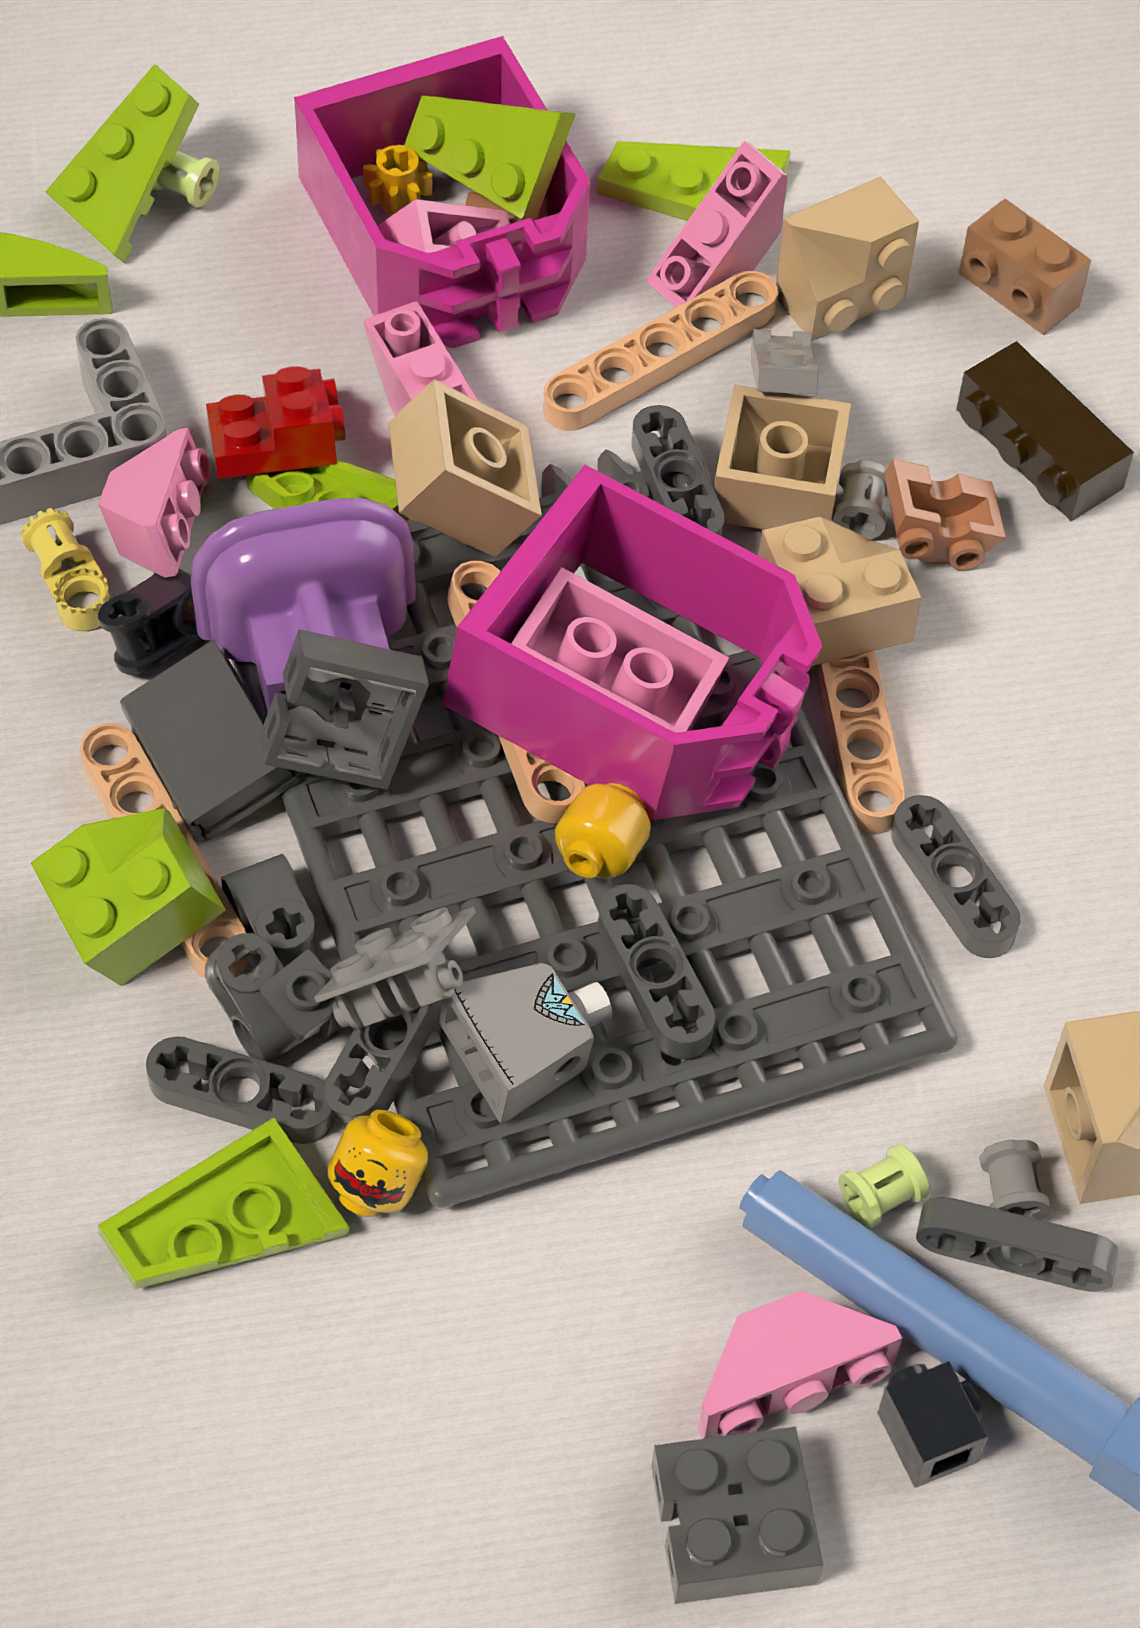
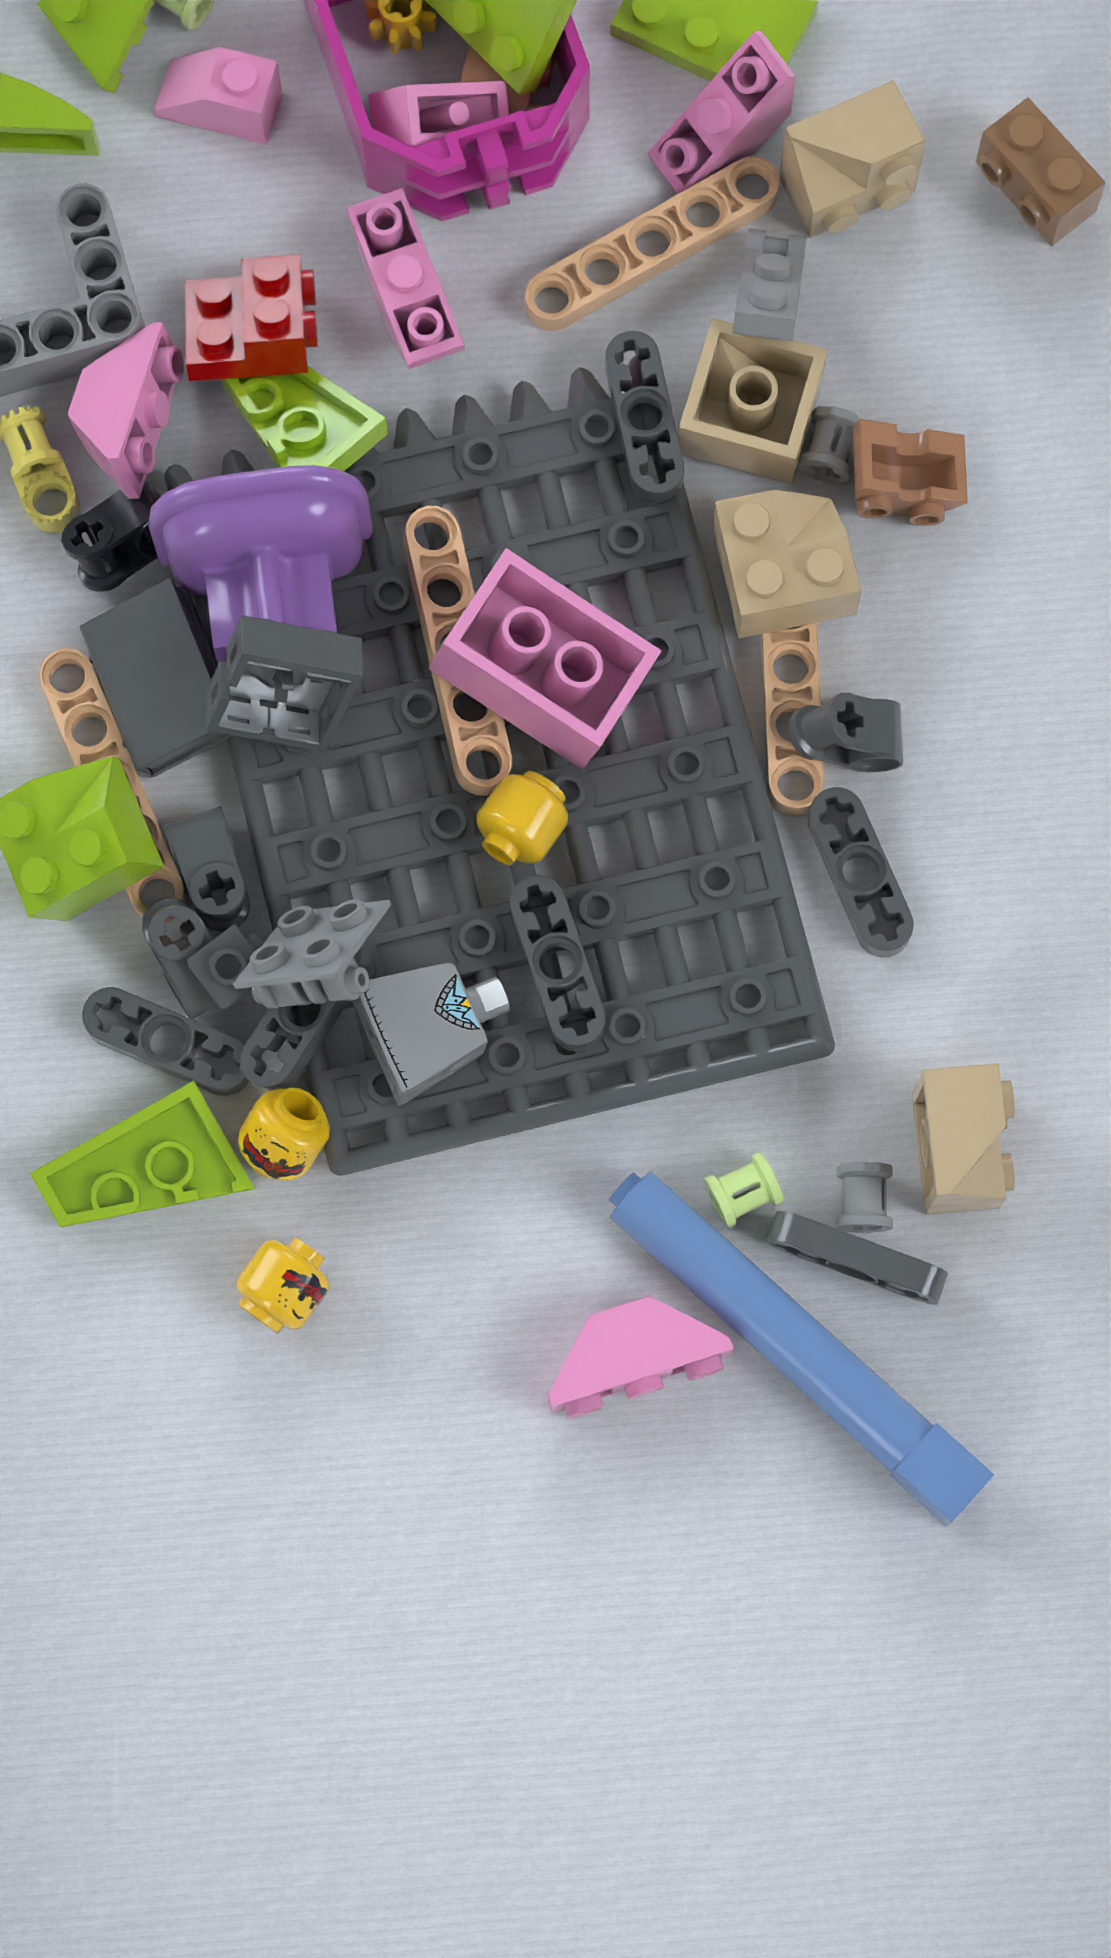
camera: 10 degrees right, 20 degrees up
(232, 248) = (222, 93): none -> bright pink slope
(390, 1319) = (283, 1284): none -> yellow head
(464, 469) = (427, 408): tan slope -> none
(681, 570) = (635, 547): dark pink container -> none
(712, 1547) = (601, 1488): dark grey piece -> none
(927, 741) = (850, 733): none -> dark grey piece
(932, 1421) = (754, 1418): black brick -> none
(1043, 431) = (1025, 375): dark brown brick -> none

